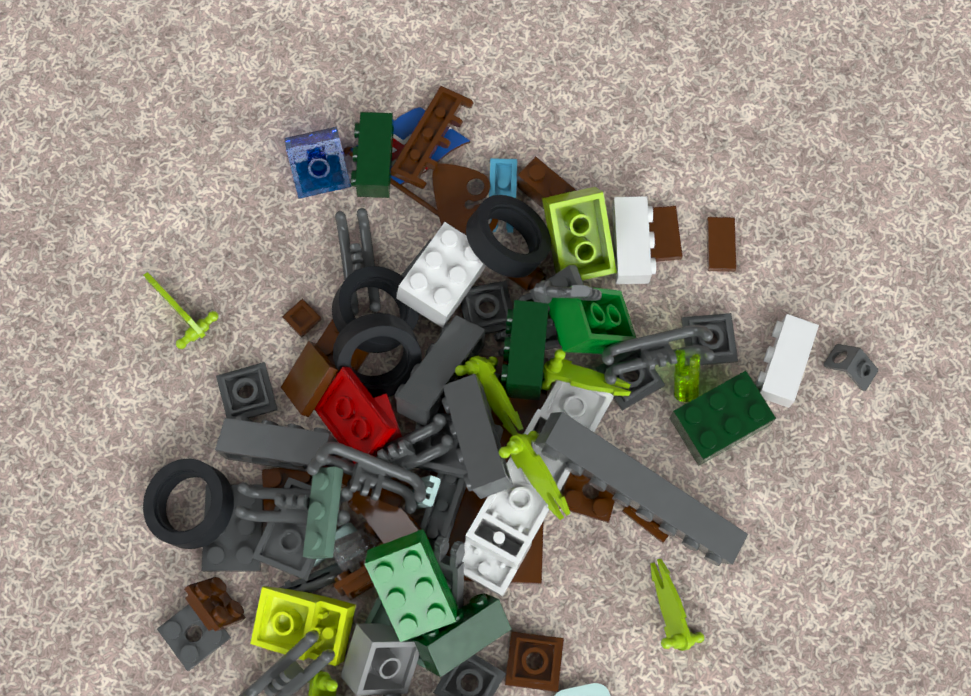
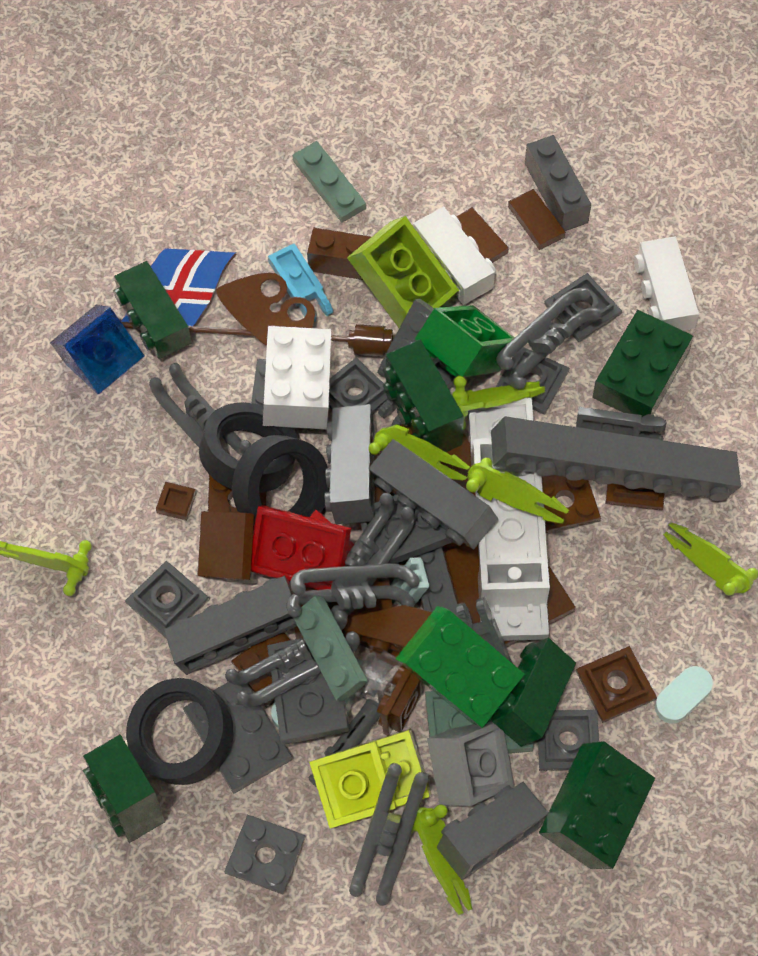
camera: 30 degrees left, 10 degrees down
(114, 527) = (122, 789): none -> dark green brick
(214, 604) = (267, 812): reddish brown piece -> none
(429, 135) = (194, 266): reddish brown hinge -> none
(495, 254) = (334, 324): black tyre -> none
(546, 291) = (449, 306): dark grey hinge -> none
(578, 121) = (329, 181): none -> sand green plate
(671, 458) = (621, 423): none -> dark grey hinge
(686, 377) = (587, 348): clear neon green hinge -> none
(755, 224) = (557, 183): none -> dark grey brick
(856, 365) = (729, 254): dark grey bracket -> none

